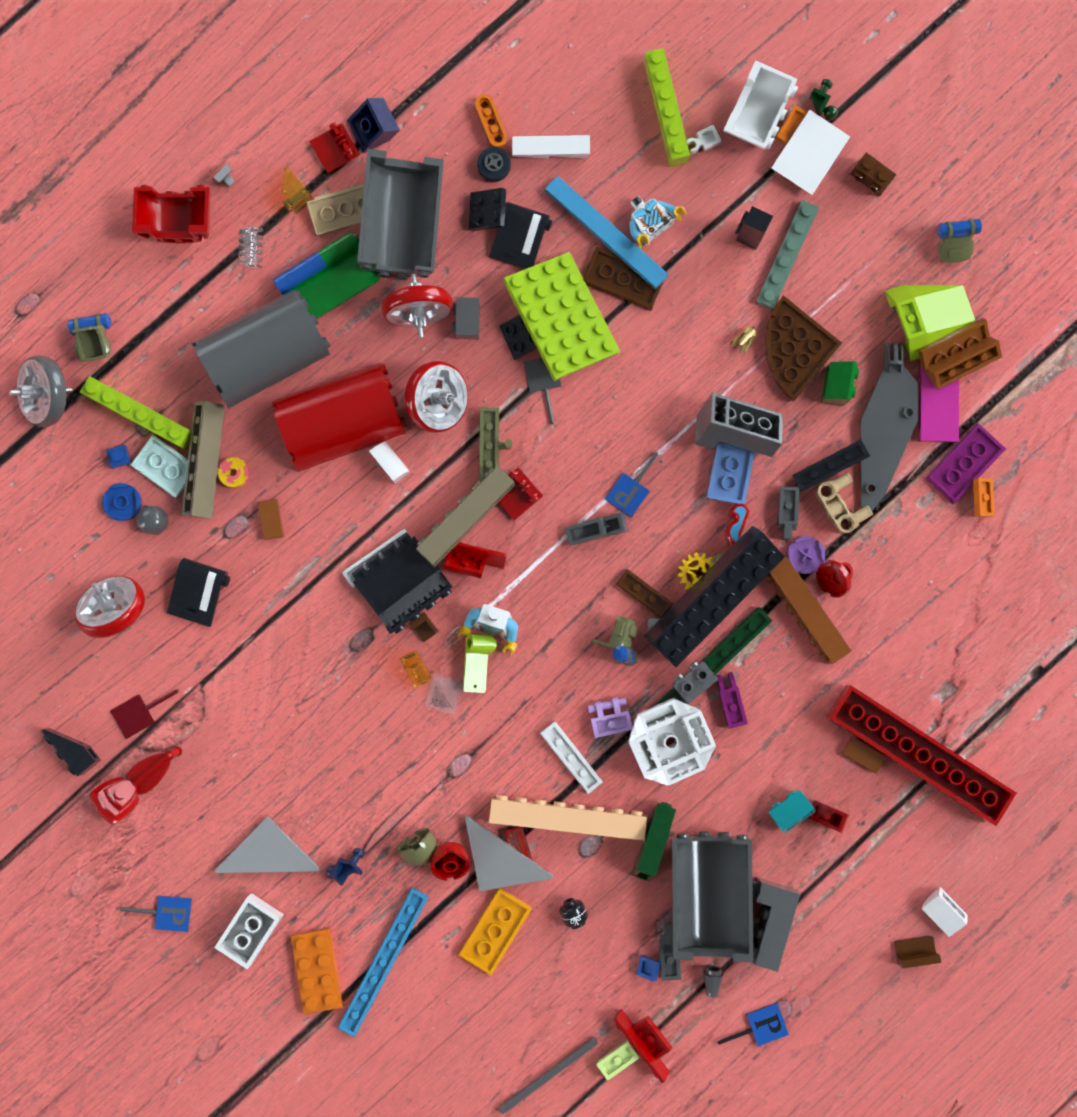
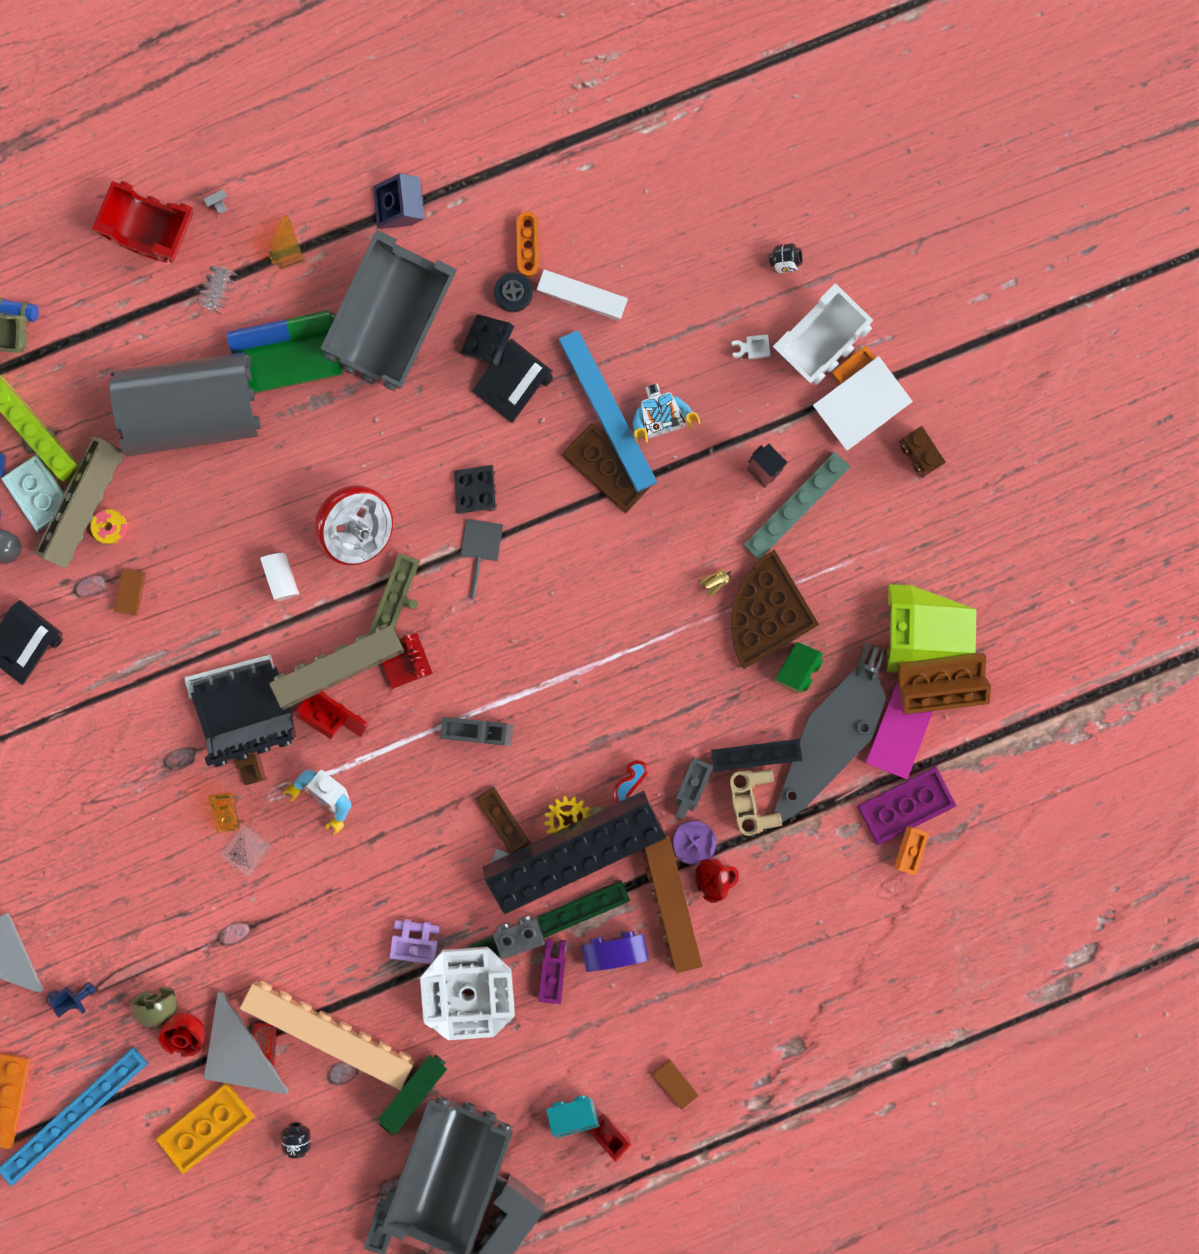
camera: 20 degrees right, 0 degrees up
(334, 147) = (348, 212): red hinge -> none
(337, 209) = (323, 280): tan piece -> none
(338, 417) = (241, 507): red cylinder -> none
(417, 305) = (369, 418): wheel -> none
(467, 318) = (421, 450): dark grey brick -> none
(476, 659) = (292, 829): door -> none
(561, 316) = (523, 485): lime plate -> none
(571, 757) = (357, 969): white tile -> none
(621, 641) = (456, 864): olive piece -> none
(628, 493) = (526, 703): blue piece -> none
(648, 968) = (354, 1229): blue plate -> none
(666, 107) = (723, 297): lime brick -> none
(705, 58) = (786, 258): none -> black head
(730, 474) = (644, 723): medium blue plate -> none
(738, 425) = (670, 676): dark grey hinge -> none
(776, 666) = (614, 952): none -> dark purple brick
(821, 99) = (896, 350): dark green piece -> none
(921, 755) = (736, 1108): red brick -> none
(957, 240) = (986, 557): olive piece -> none

